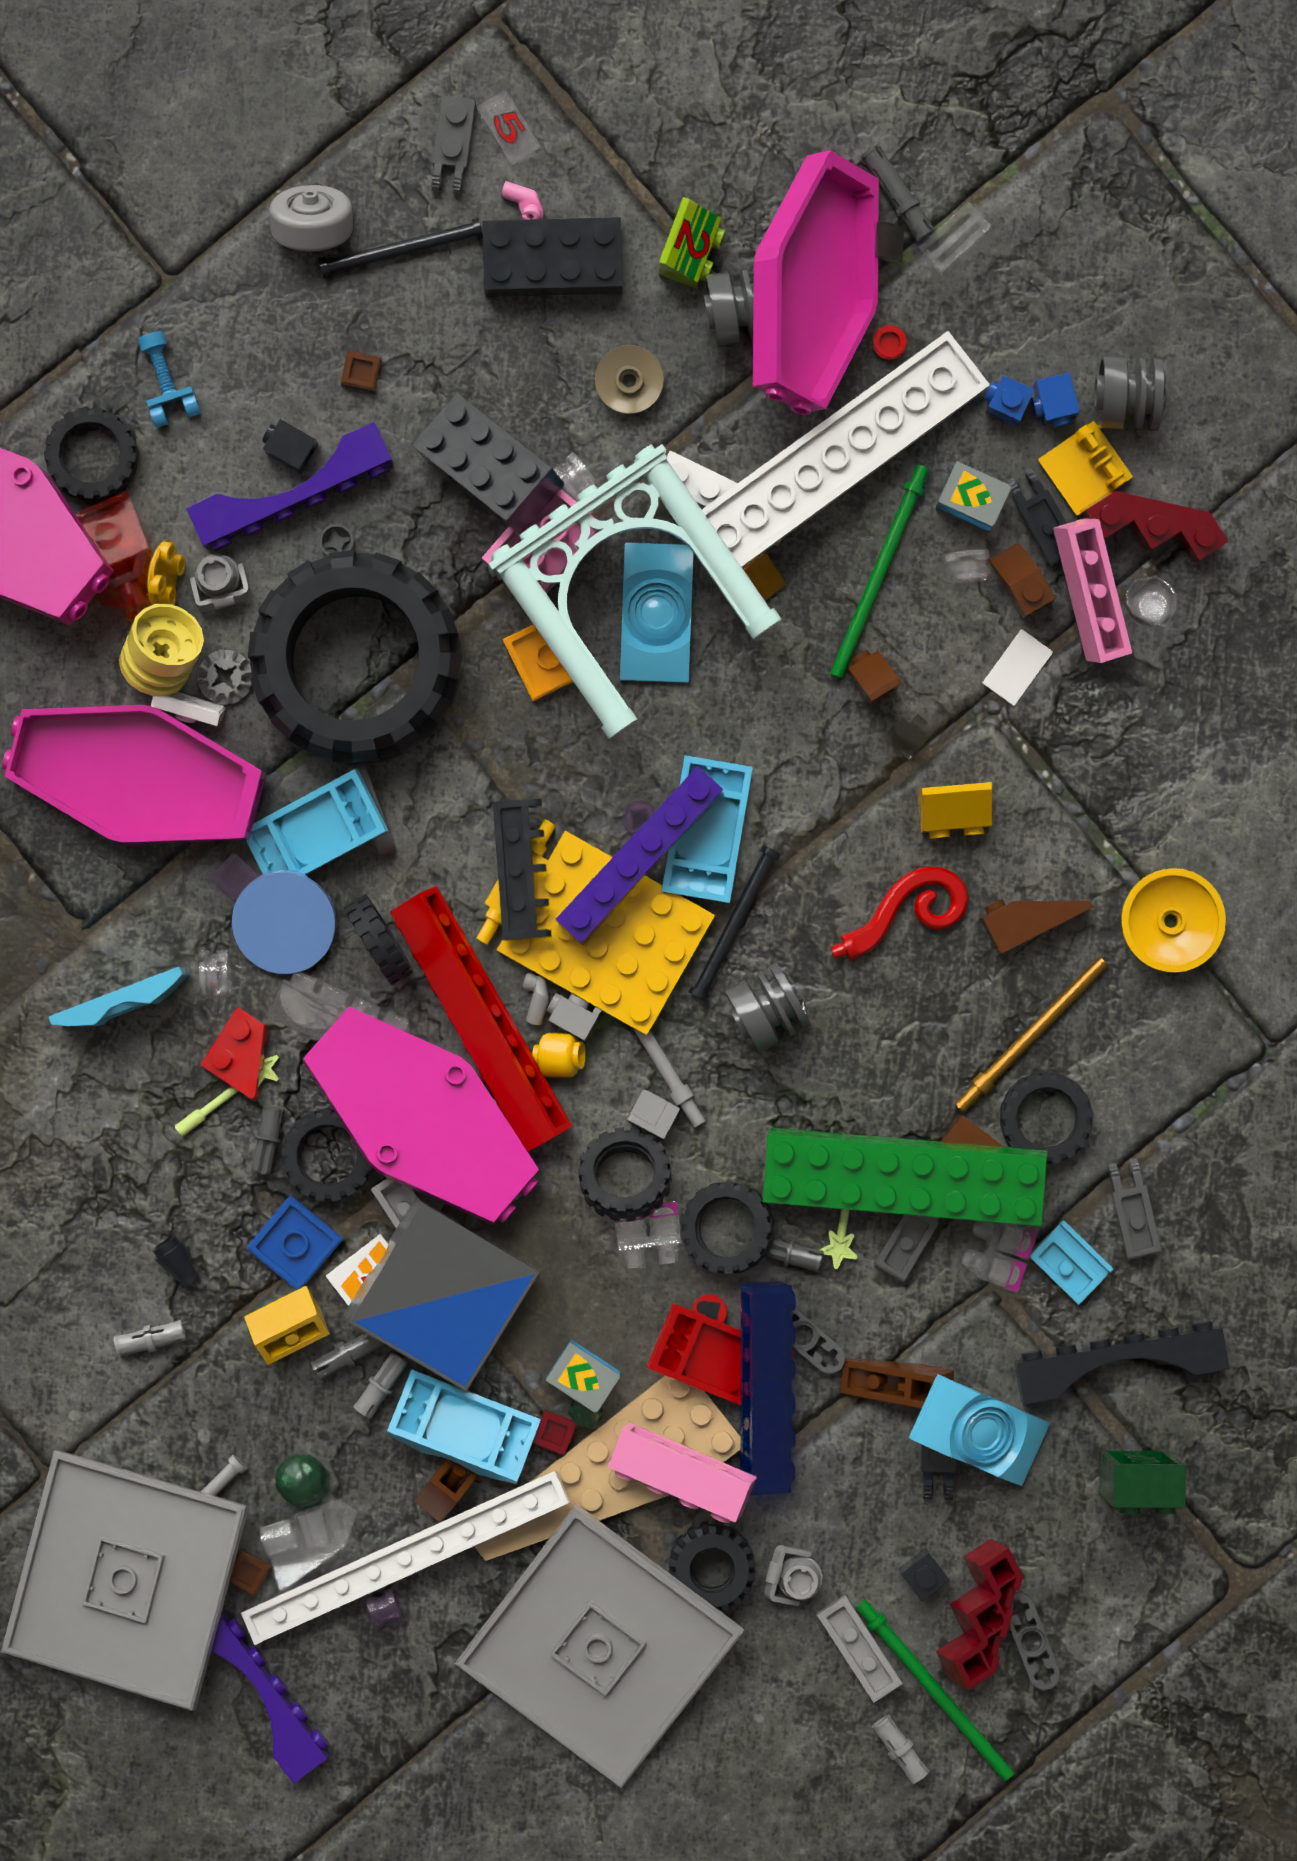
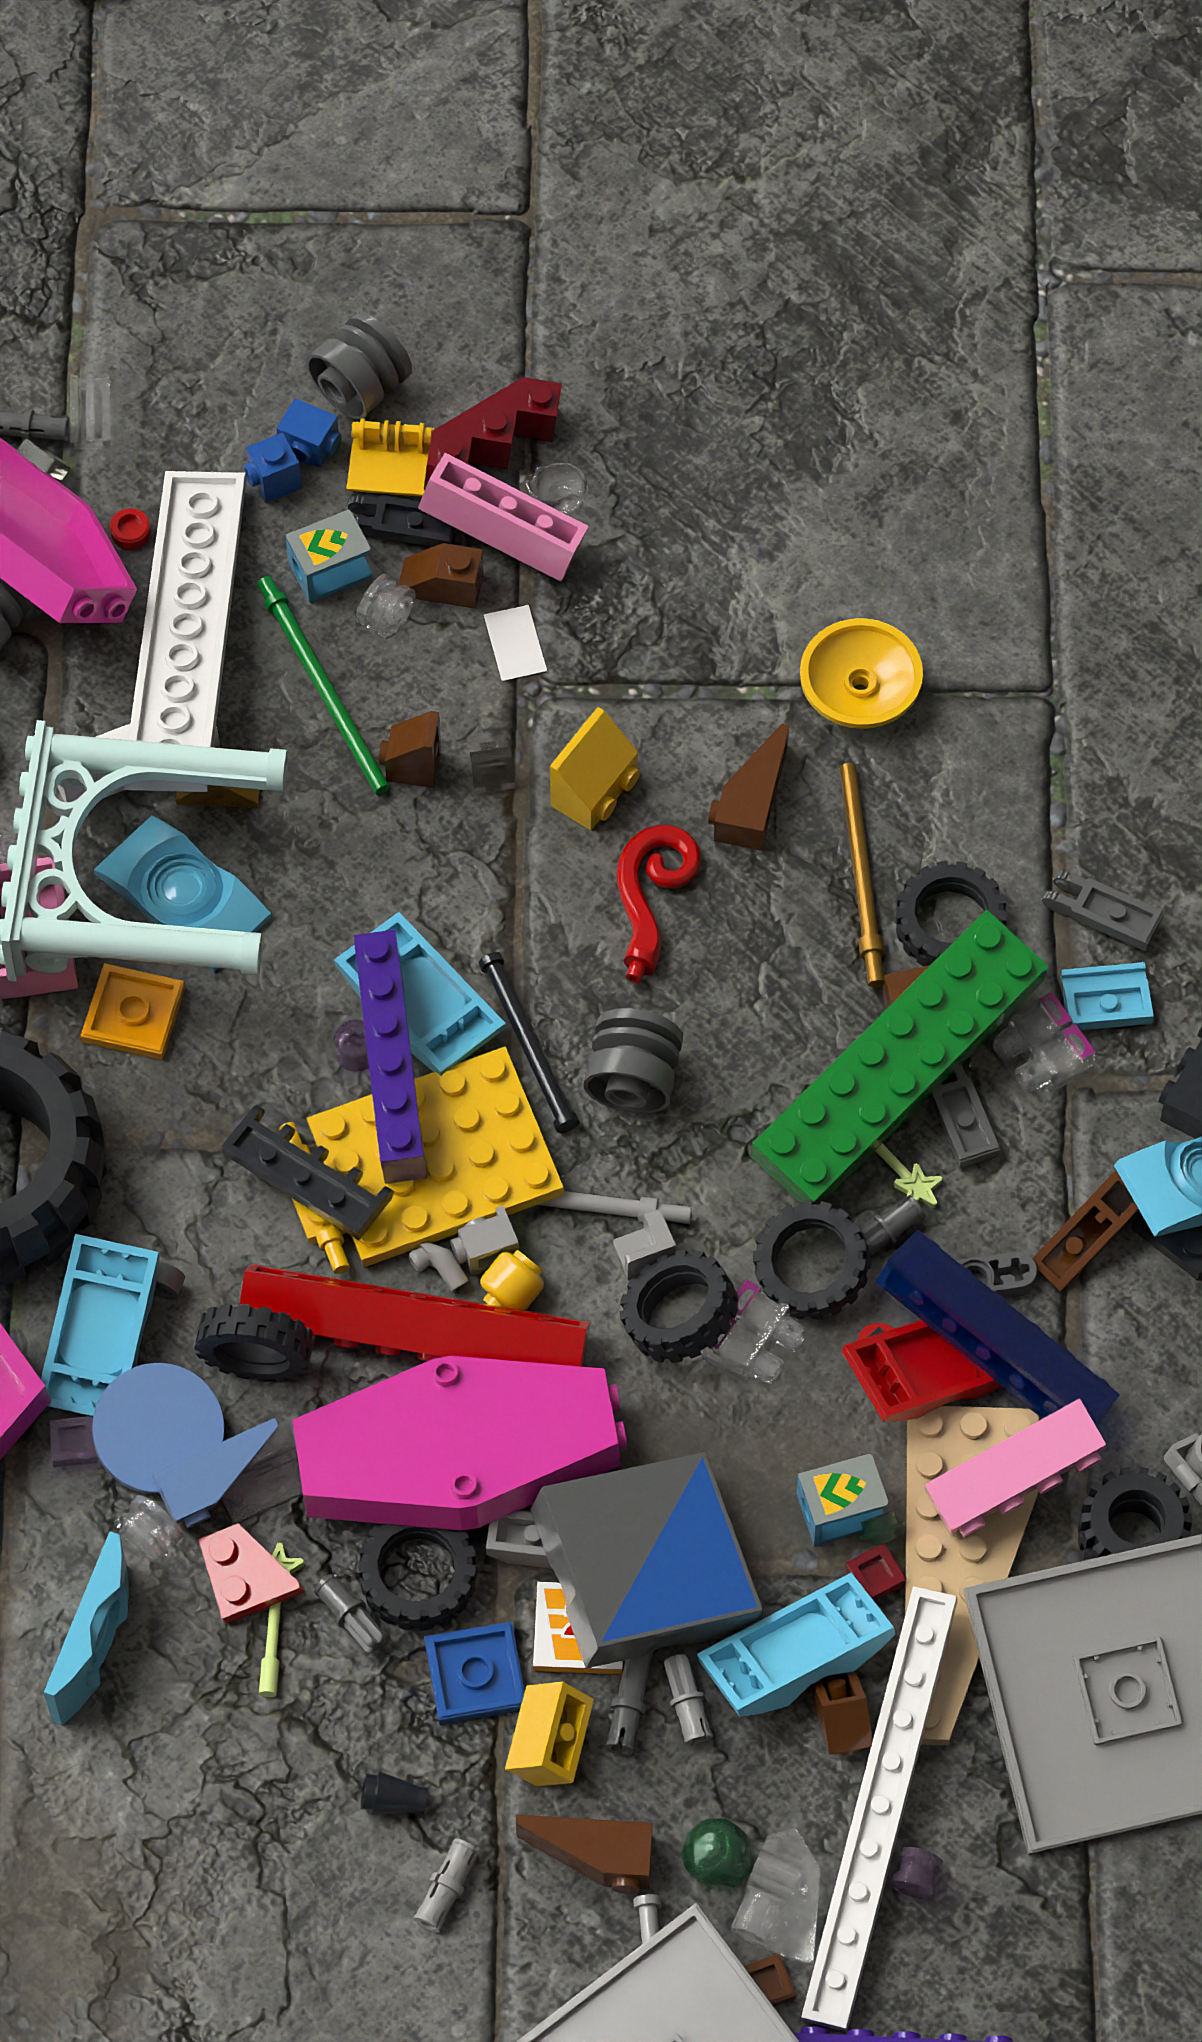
camera: 45 degrees left, 25 degrees down
(244, 1413) = (603, 1850): none -> reddish brown slope
(271, 981) = (203, 1479): none -> medium blue slope

